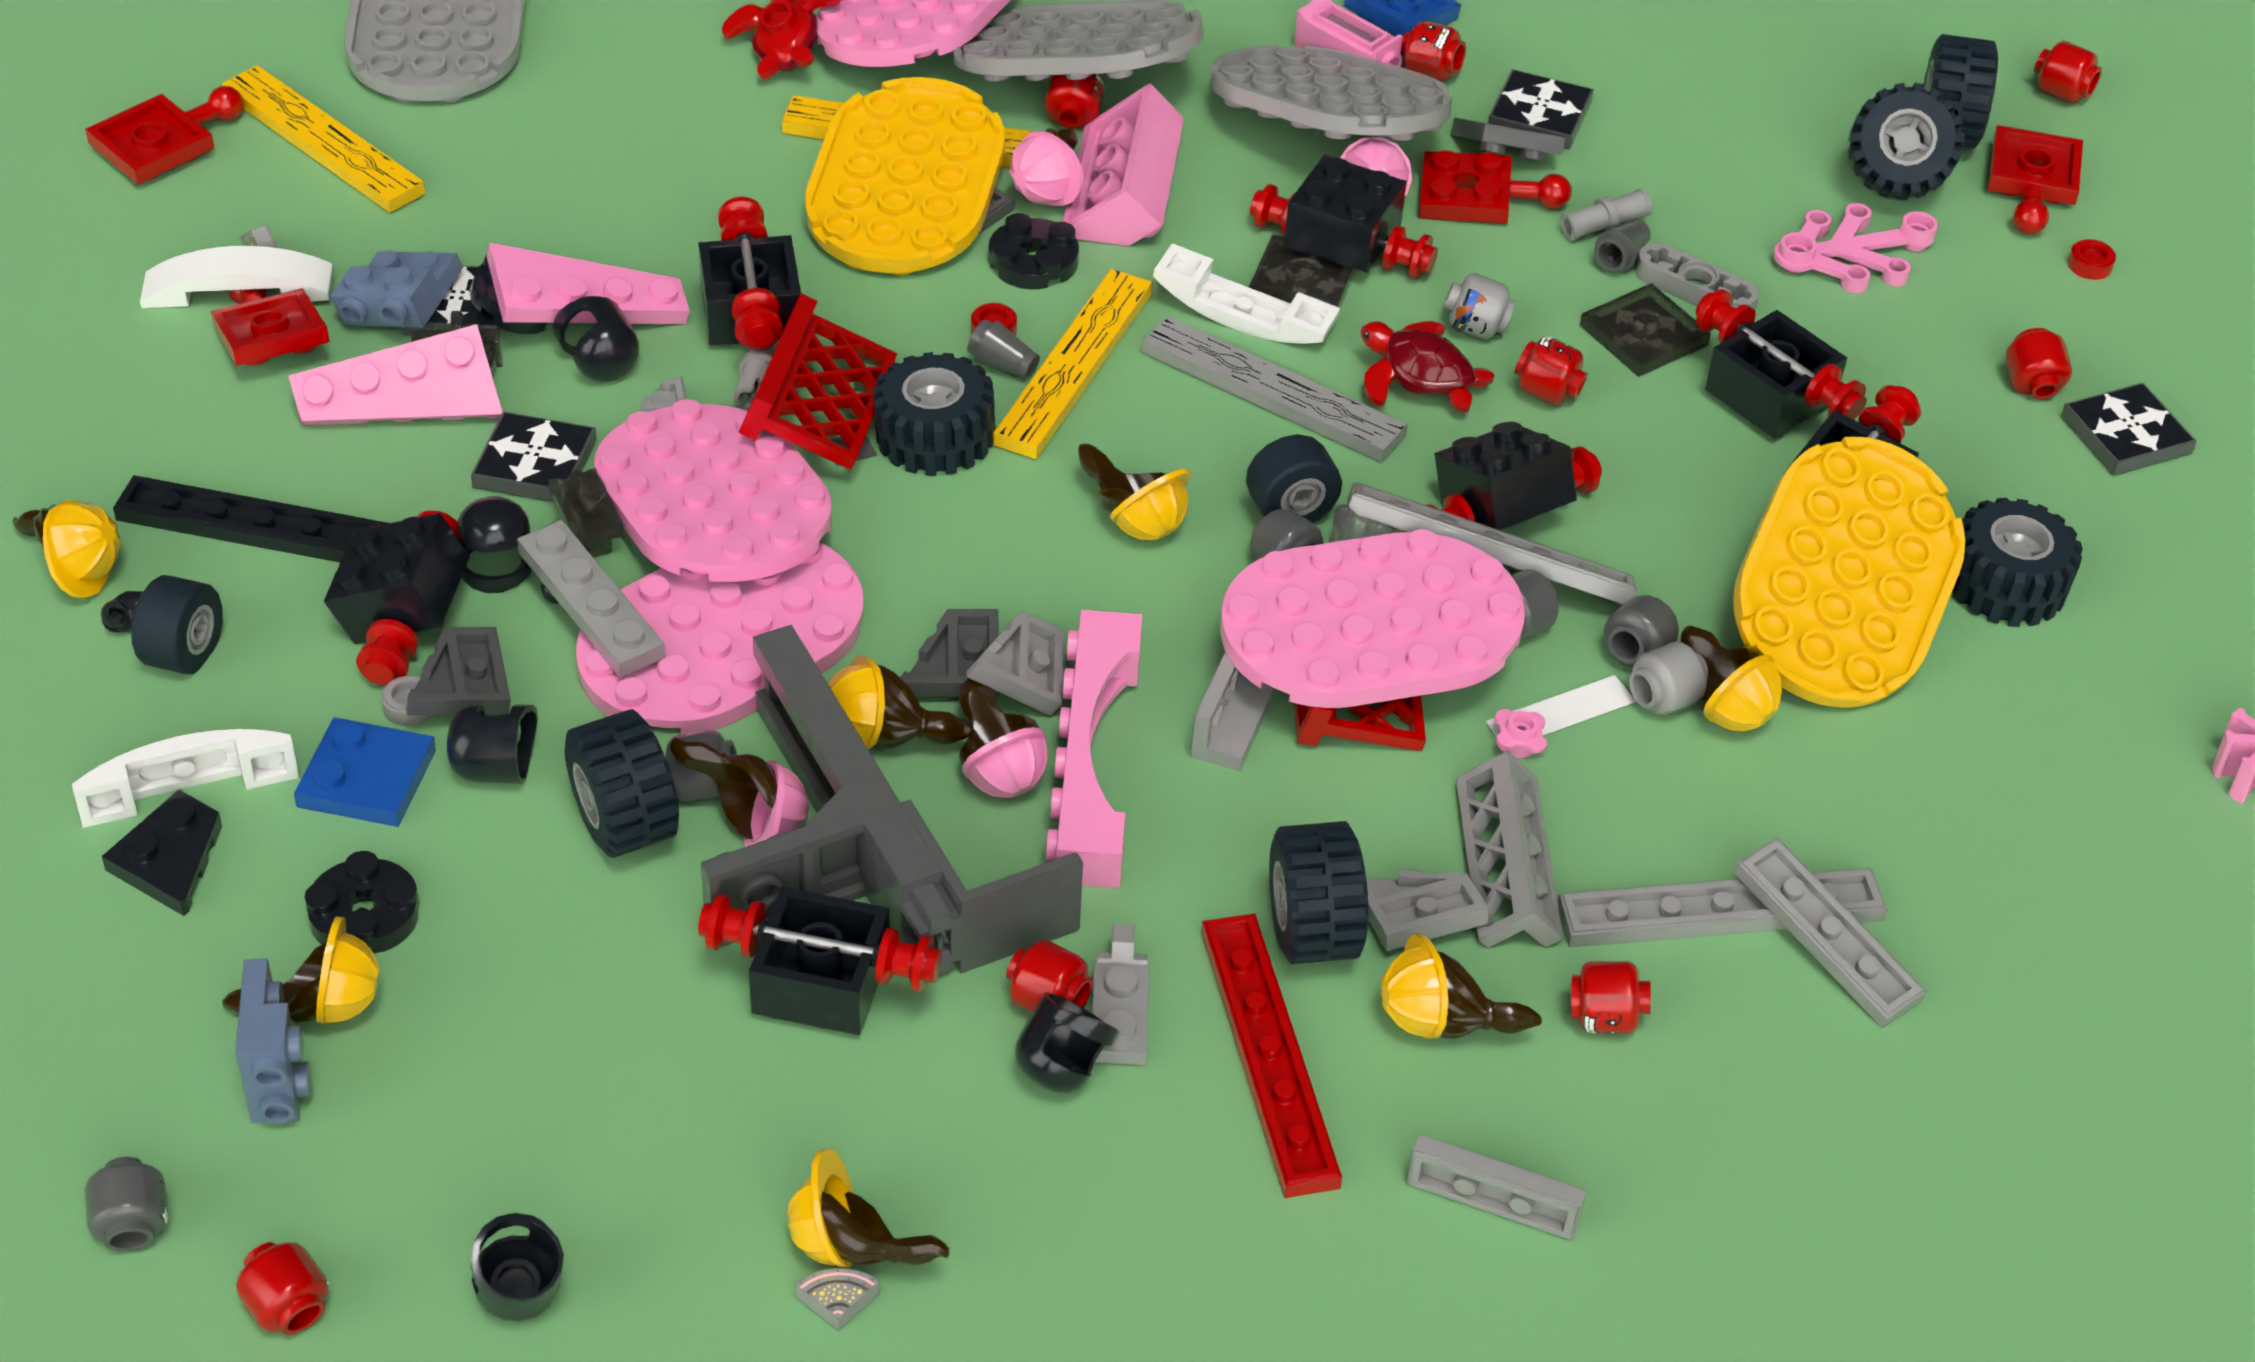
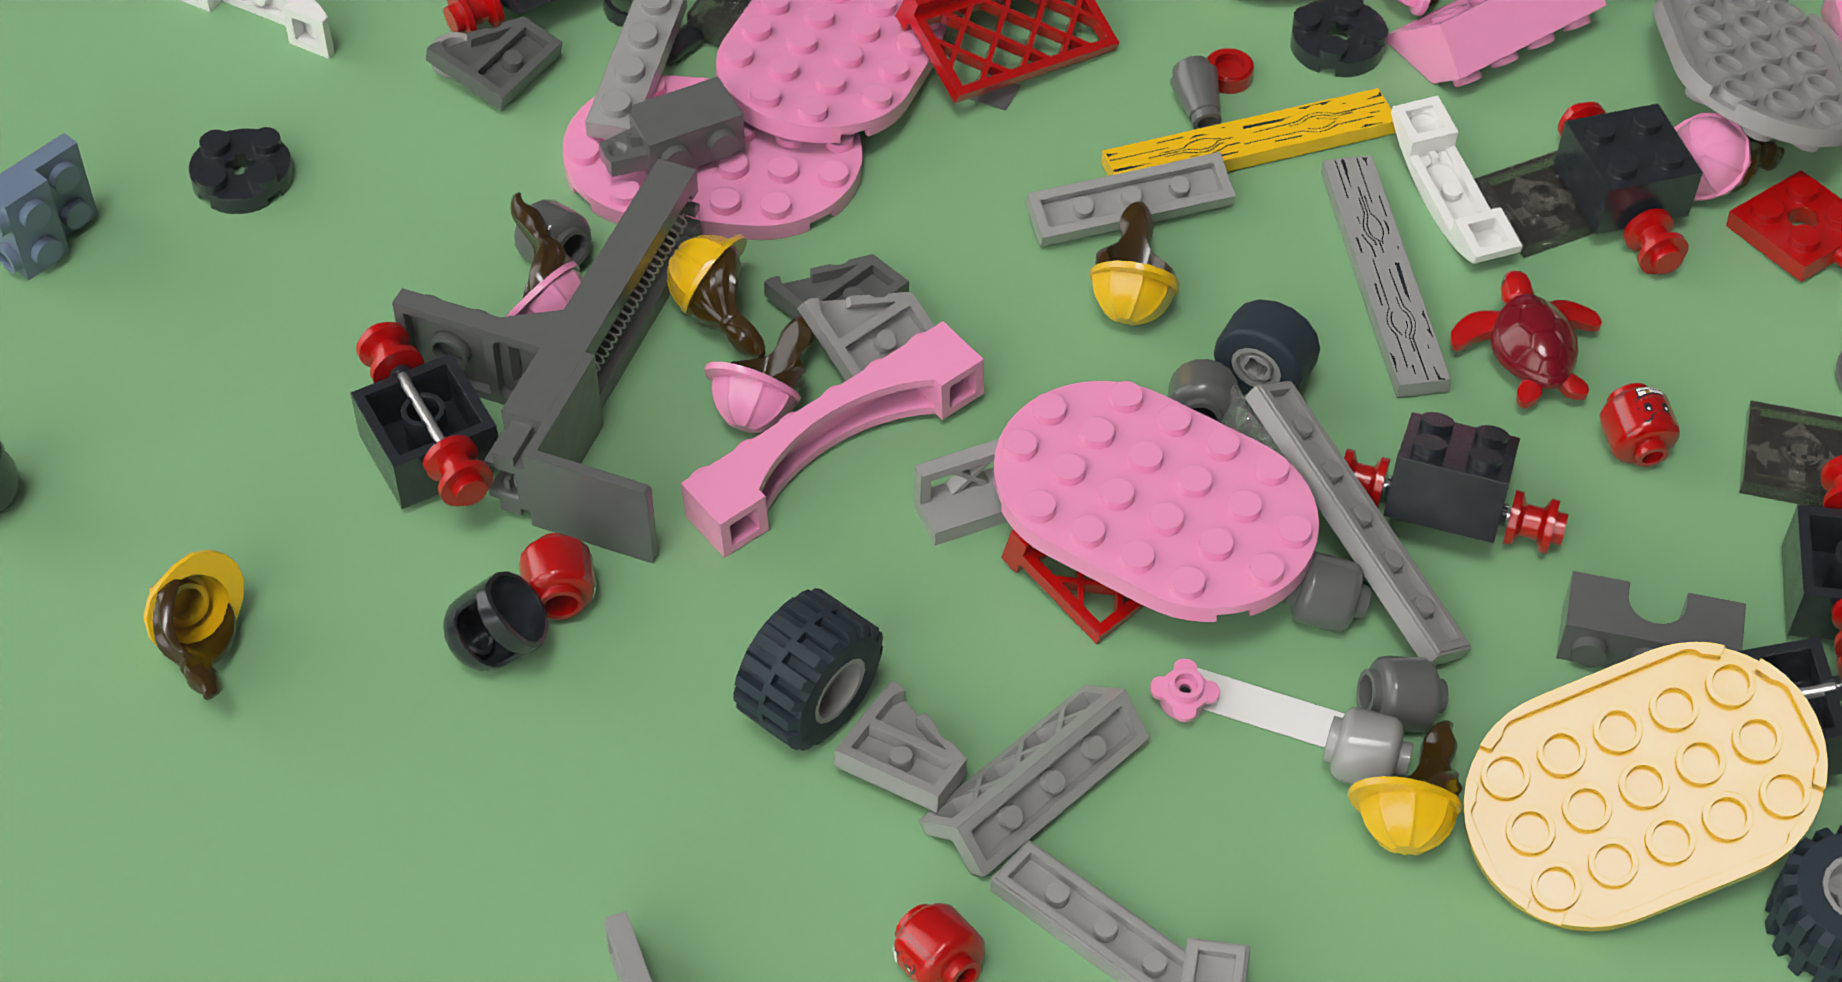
camera: 50 degrees right, 5 degrees up
(167, 851) = (189, 46): black wing -> none
(331, 983) = (138, 194): yellow piece -> none
(365, 772) = (364, 83): blue plate -> none
(487, 746) = (441, 107): black helmet -> none
(621, 783) = (461, 202): black wheel -> none
(707, 619) = (679, 127): none -> dark grey hinge
(837, 1293) = (141, 669): light grey tile -> none
(934, 413) = (1069, 102): black wheel -> none
(1055, 453) = (1098, 203): none -> light grey plate
(1122, 998) = (600, 635): light grey hinge -> none
(1271, 1056) = (634, 776): red tile -> none
(1439, 998) = (787, 825): piece -> none
(1479, 306) = (1653, 328): light grey head -> none
(1690, 508) = (1605, 630): none -> dark grey arch

